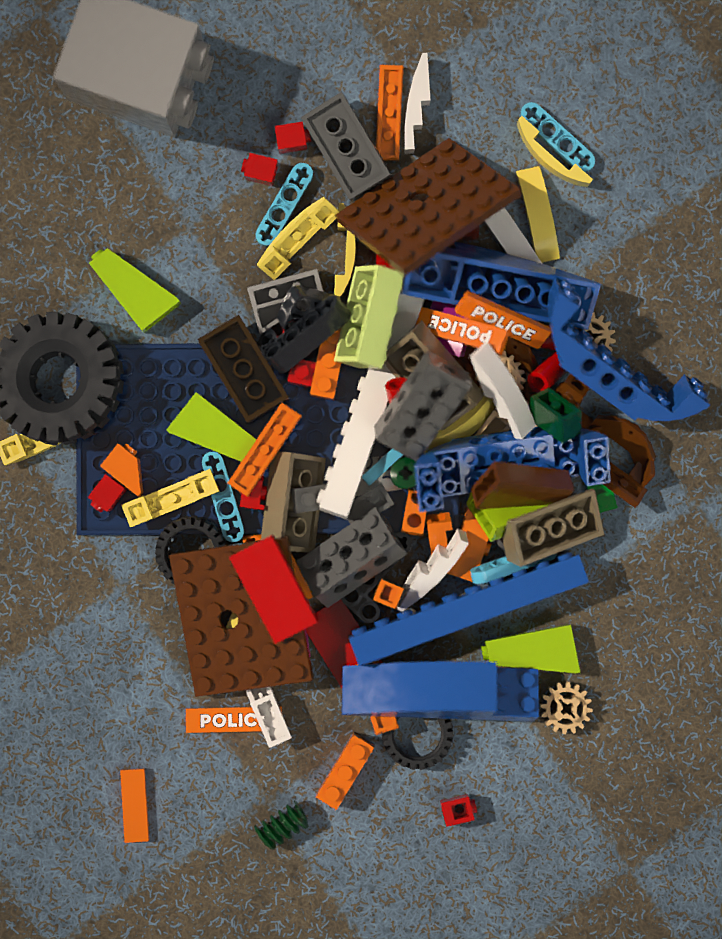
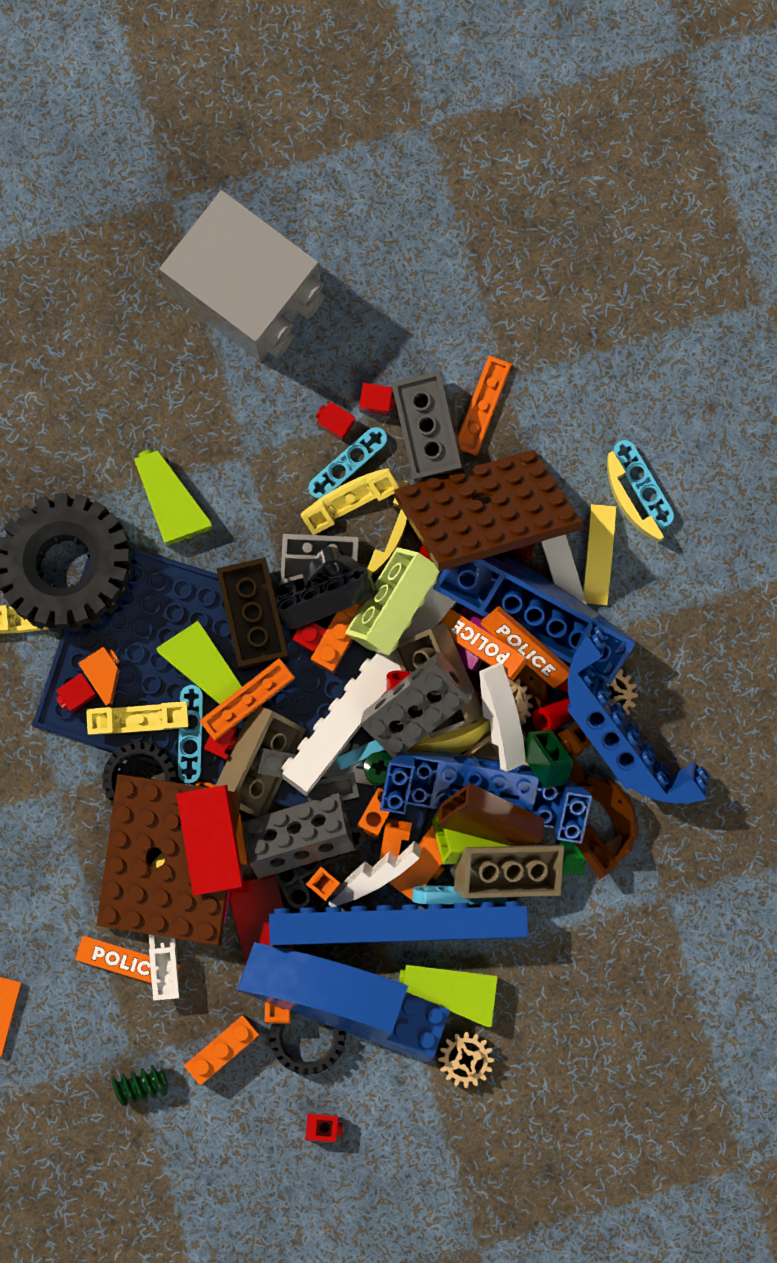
camera: 25 degrees right, 5 degrees down
(418, 97) = (515, 399): white slope -> none

